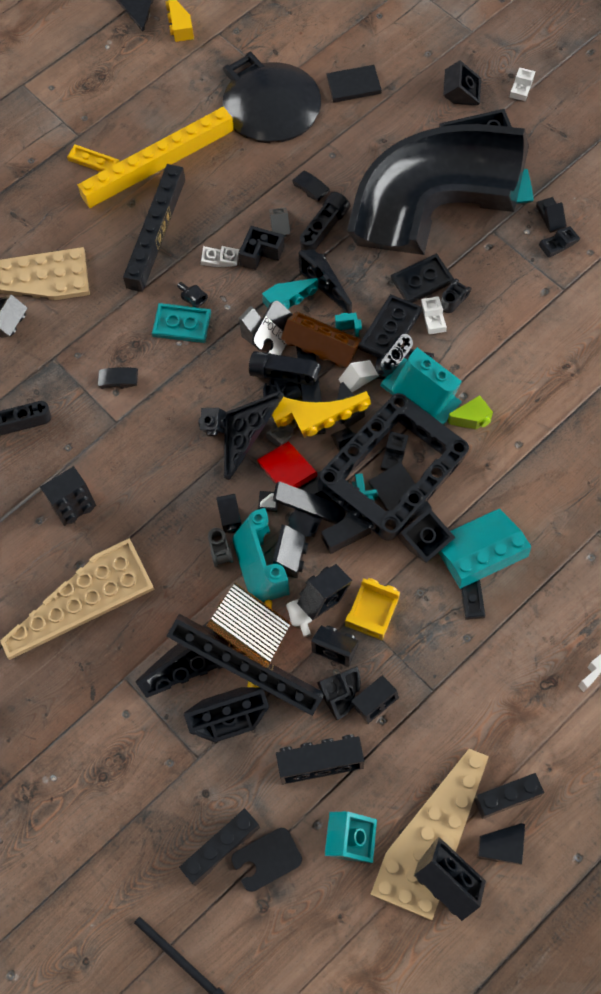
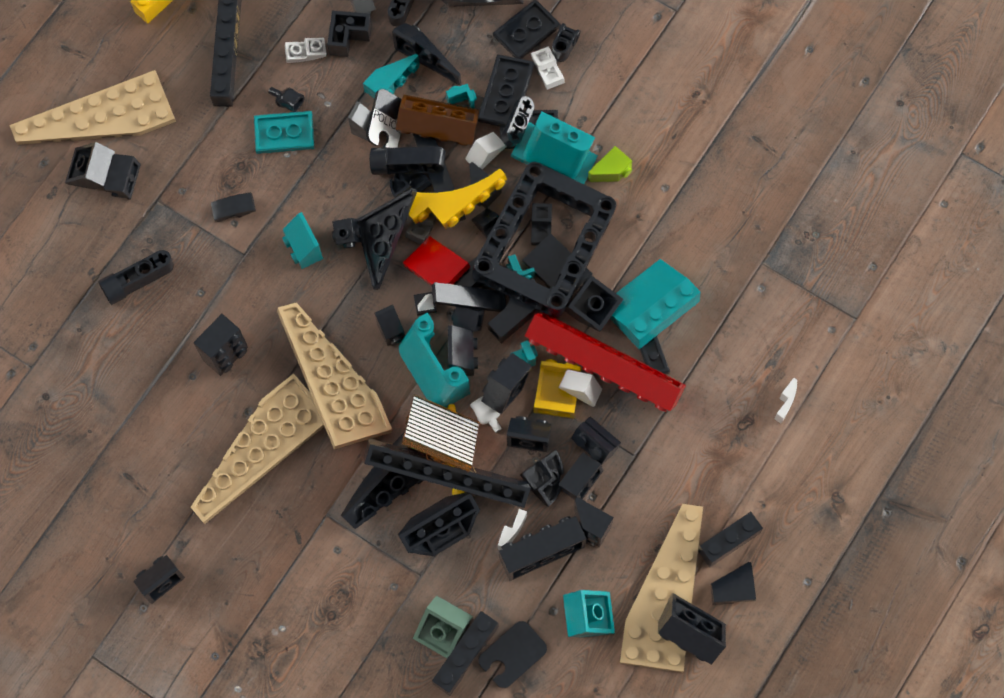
camera: 15 degrees left, 5 degrees up
(28, 330) = (122, 176): none -> black hinge
(167, 569) = (341, 396): none -> tan wing
(169, 420) = (302, 242): none -> teal slope
(204, 814) = (442, 626): none -> sand green slope
(219, 550) = (389, 365): dark grey piece -> none
(292, 738) = (509, 534): none -> white slope
(351, 568) = (527, 353): none -> teal bracket
(375, 746) = (592, 521): none -> black slope
(396, 611) = (581, 386): none -> white slope
(397, 666) = (595, 440): none -> black brick
(425, 593) = (606, 361): none -> red brick

